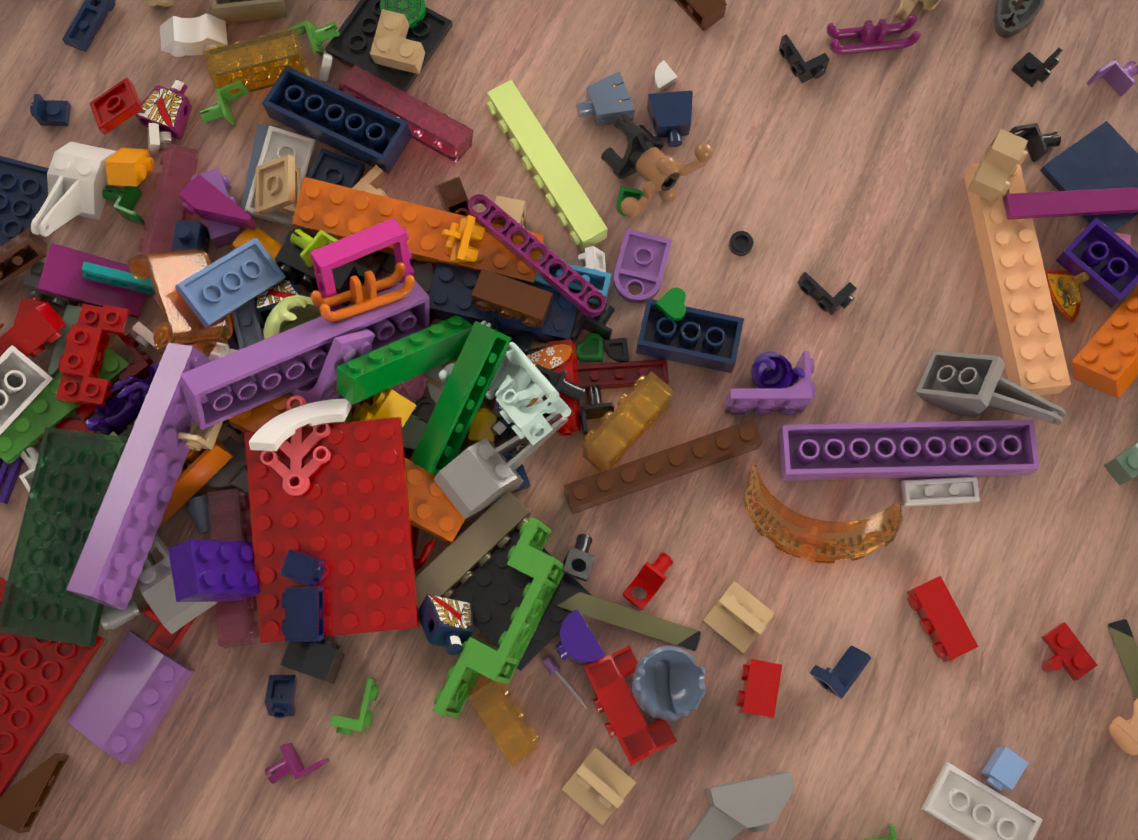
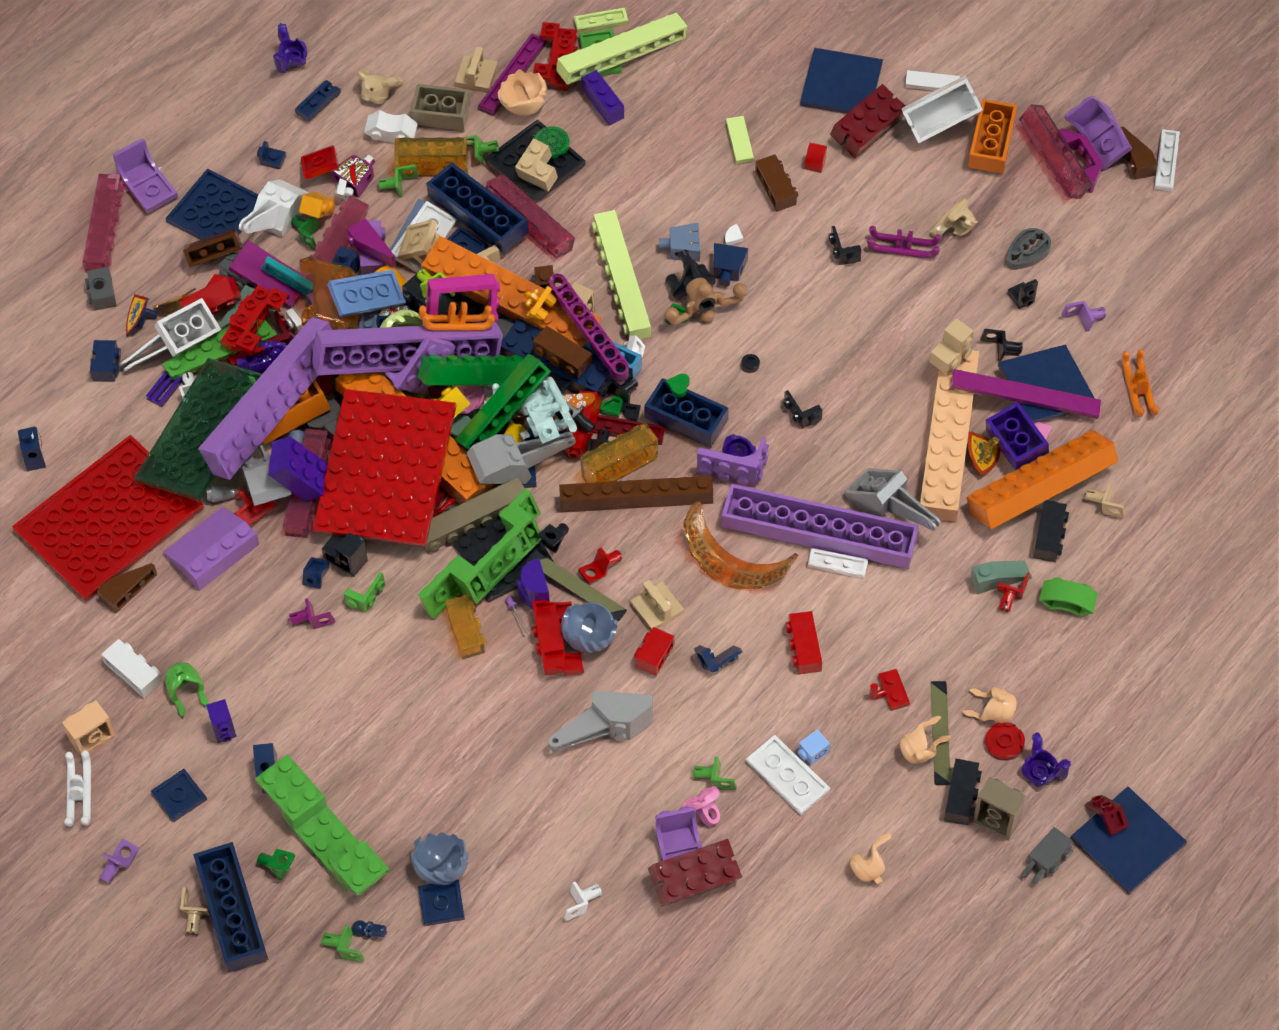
camera: 20 degrees right, 15 degrees down
(200, 438) = (315, 382): tan bracket -> none
(283, 426) = (375, 384): white tile -> none
(296, 452) = (378, 405): coral plant -> none
(303, 567) = (358, 481): clear blue brick -> none
(303, 613) = (349, 511): clear blue brick -> none
(325, 66) = (482, 168): white tile -> none
(446, 622) = (446, 547): torso -> none
(598, 786) = (518, 684): tan bracket -> none
(641, 264) = (670, 358): medium lavender tile -> none

